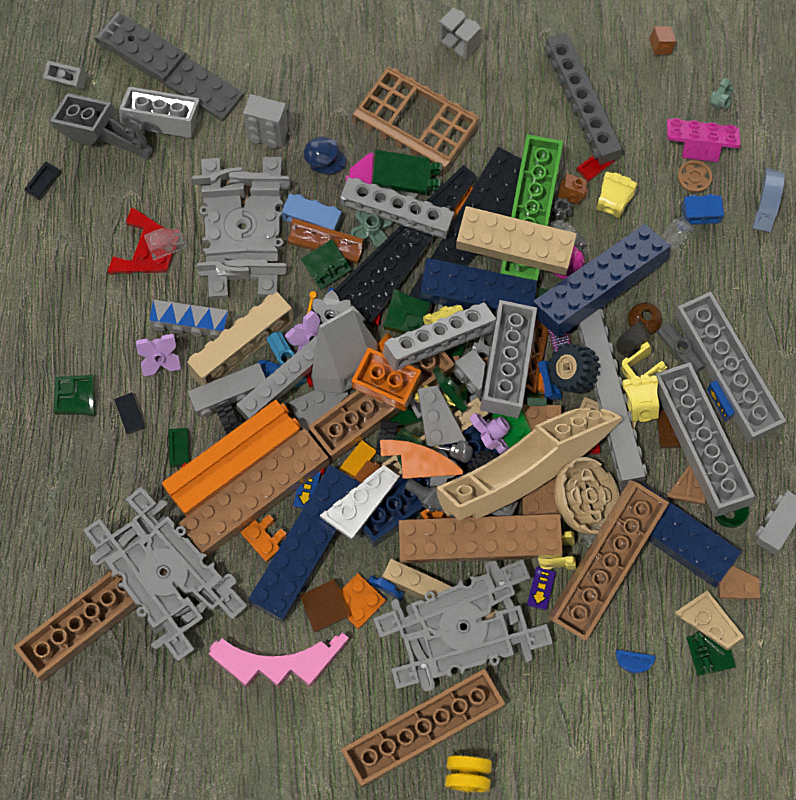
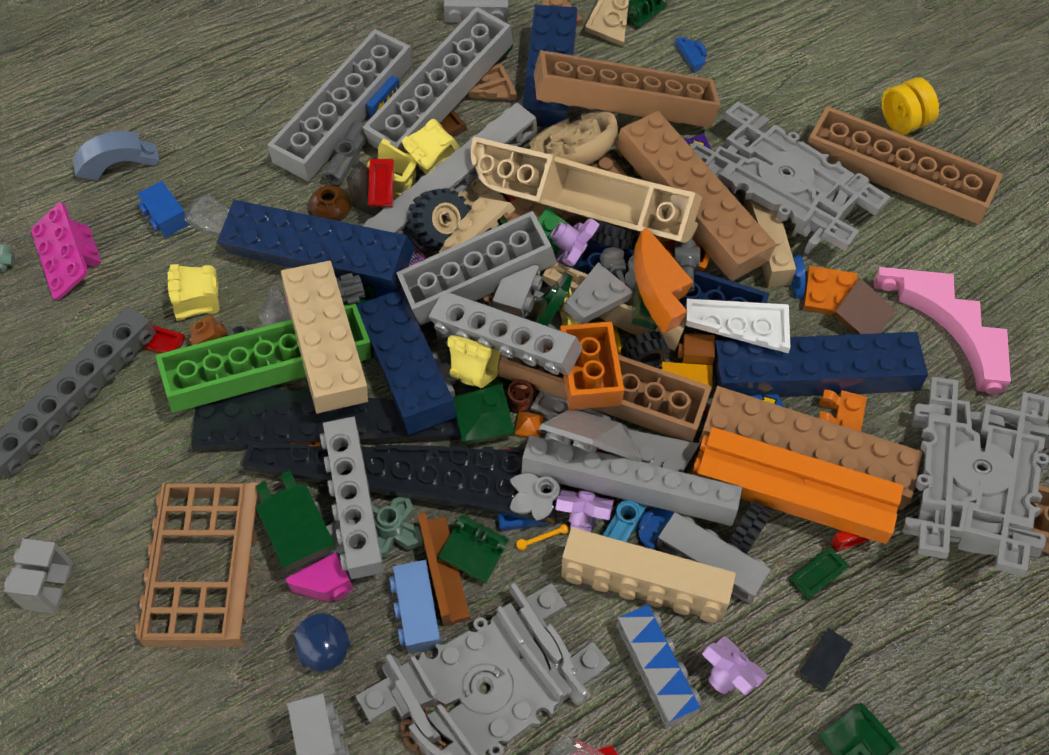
camera: 120 degrees left, 10 degrees down
(547, 279) = (350, 288): none -> dark grey gear
(548, 382) = (478, 220): none -> tan wing
(625, 344) = (381, 183): none -> red tile
(694, 176) = (121, 239): medium nougat wheel -> none

